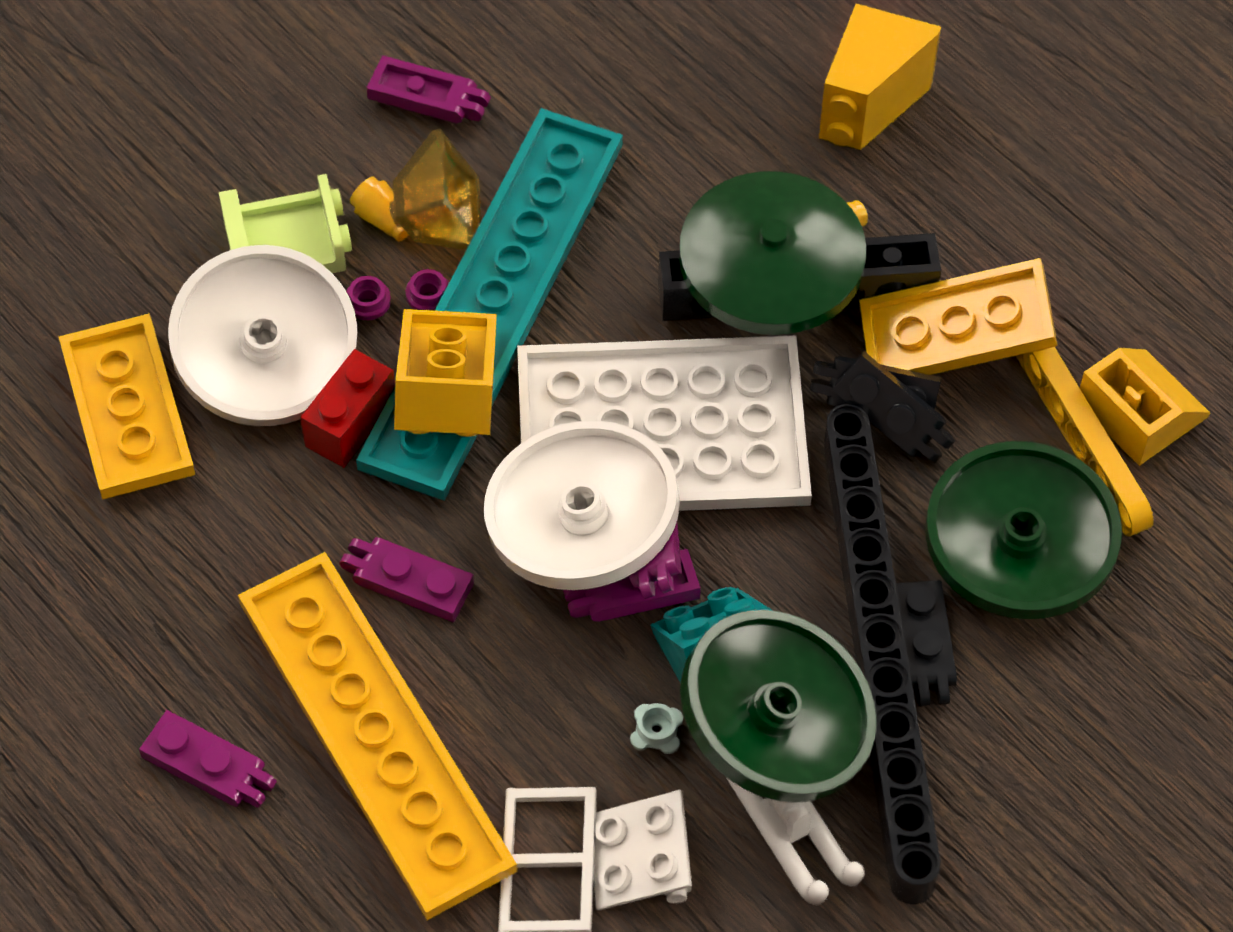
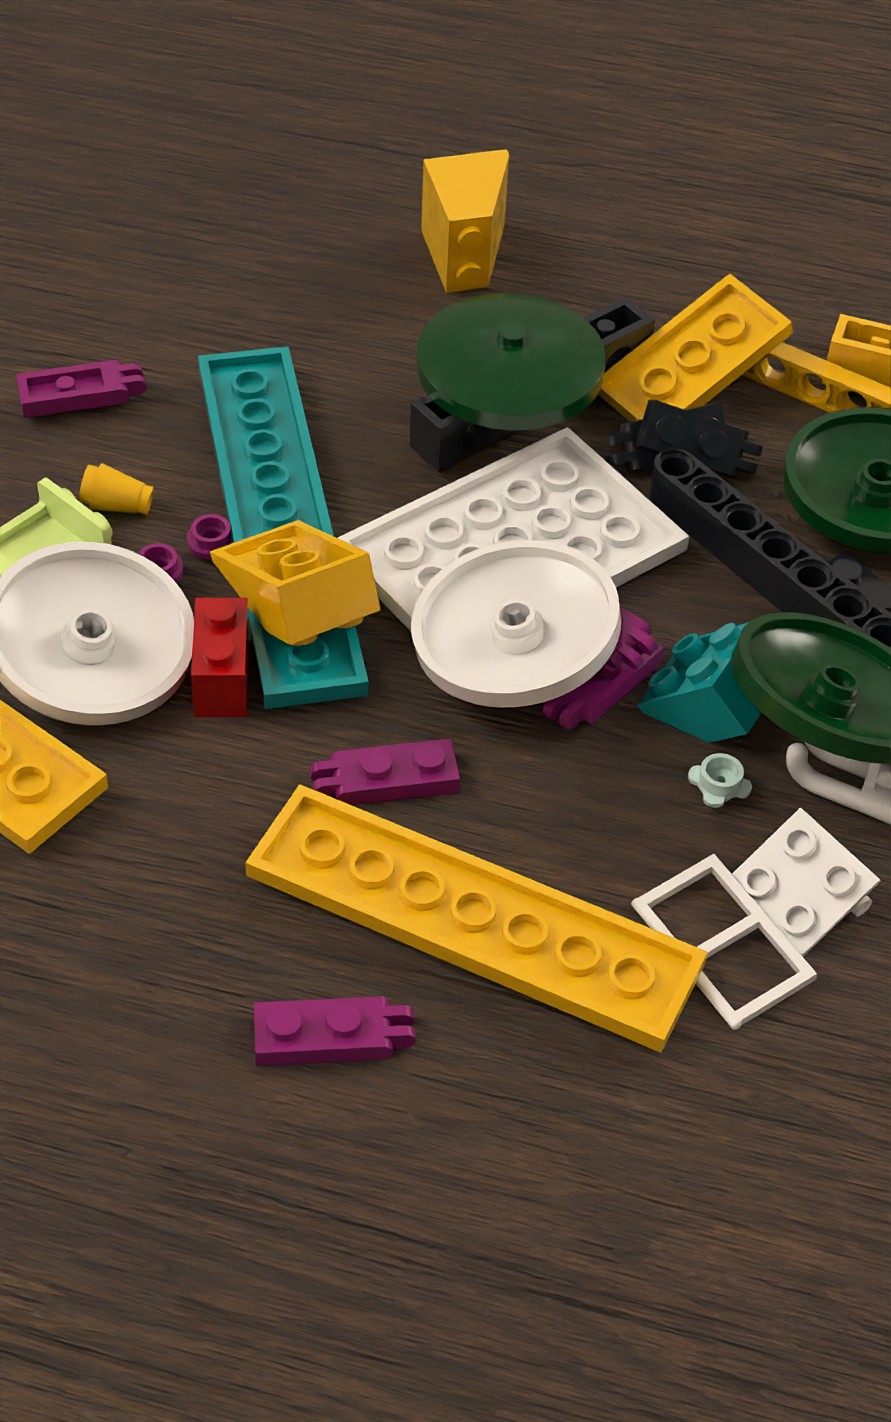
camera: 35 degrees left, 10 degrees down
(437, 195) = (166, 453): clear yellow slope -> none

